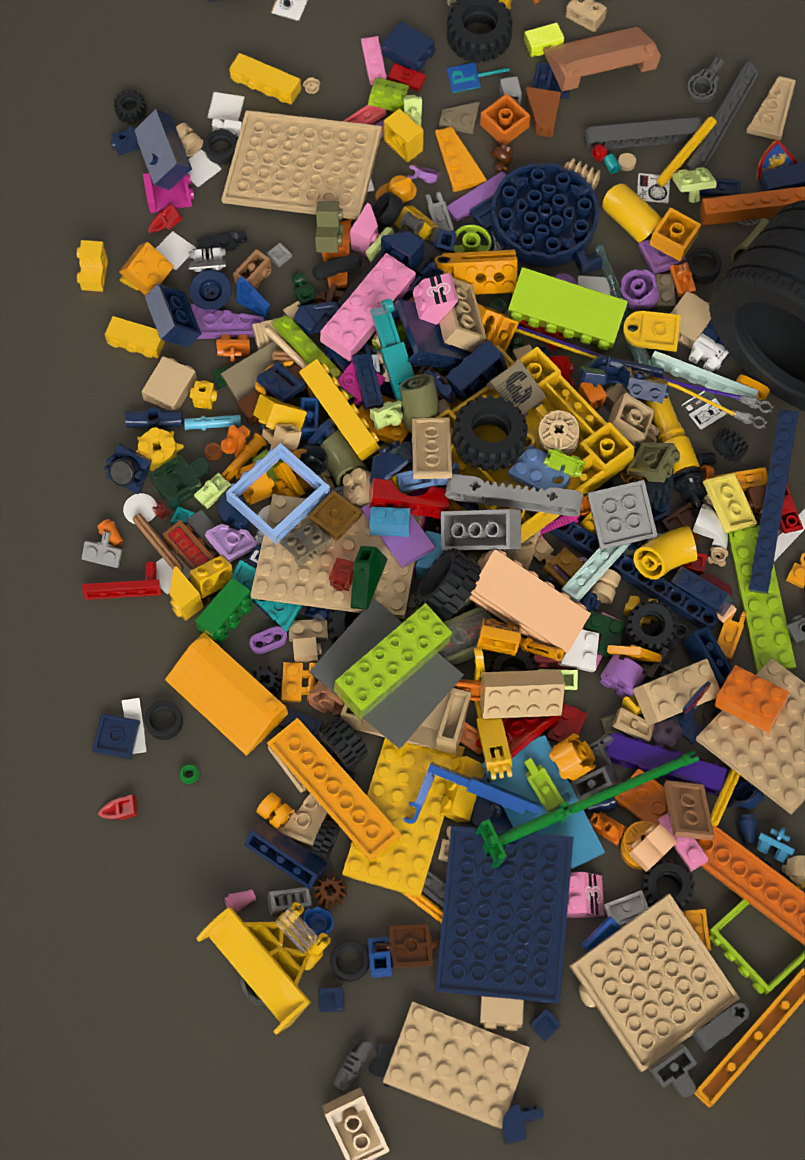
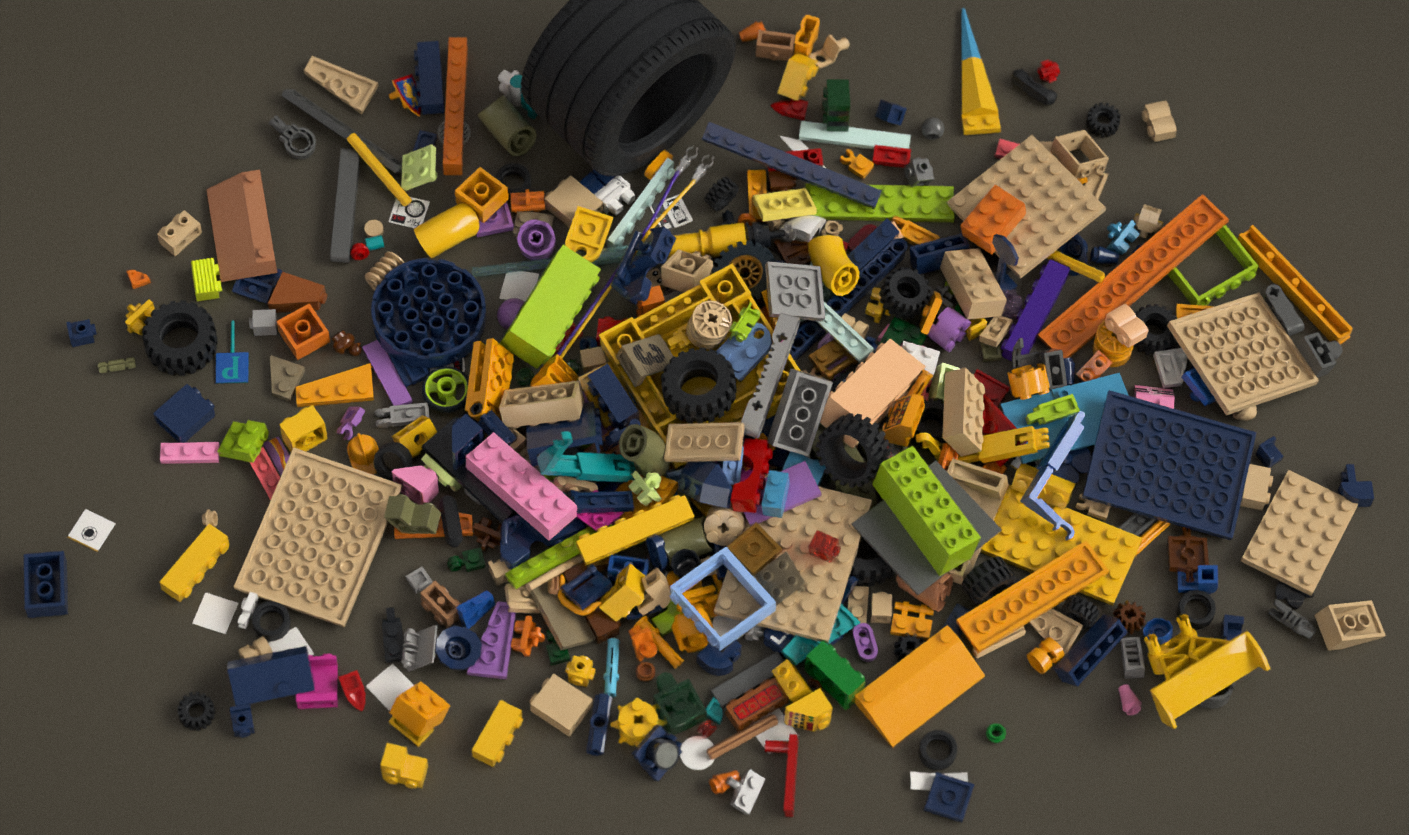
camera: 85 degrees left, 5 degrees down
(120, 808) = (1025, 801): red plate -> none
(172, 315) = (485, 686): dark blue brick -> none
(212, 490) = (694, 671): yellowish green hips -> none
(230, 542) = (755, 662): lavender plate -> none
(295, 932) = (1185, 633): clear tile -> none
(366, 576) = (833, 524): dark green slope -> none
(407, 77) = (220, 422): red plate -> none
(412, 222) = (421, 434): dark grey bush -> none
(413, 108) = (272, 417): yellowish green hips -> none
(435, 297) = (528, 416): bright pink slope -> none
(442, 239) = (444, 410): dark blue brick -> none
(494, 842) = (1109, 453): green piece -> none
(587, 263) = (489, 285): dark blue panel -> none
(654, 461) = (743, 252): olive plate -> none
(686, 847) = (1098, 311): bright pink plate -> none
(688, 810) = (1090, 293): medium nougat plate -> none

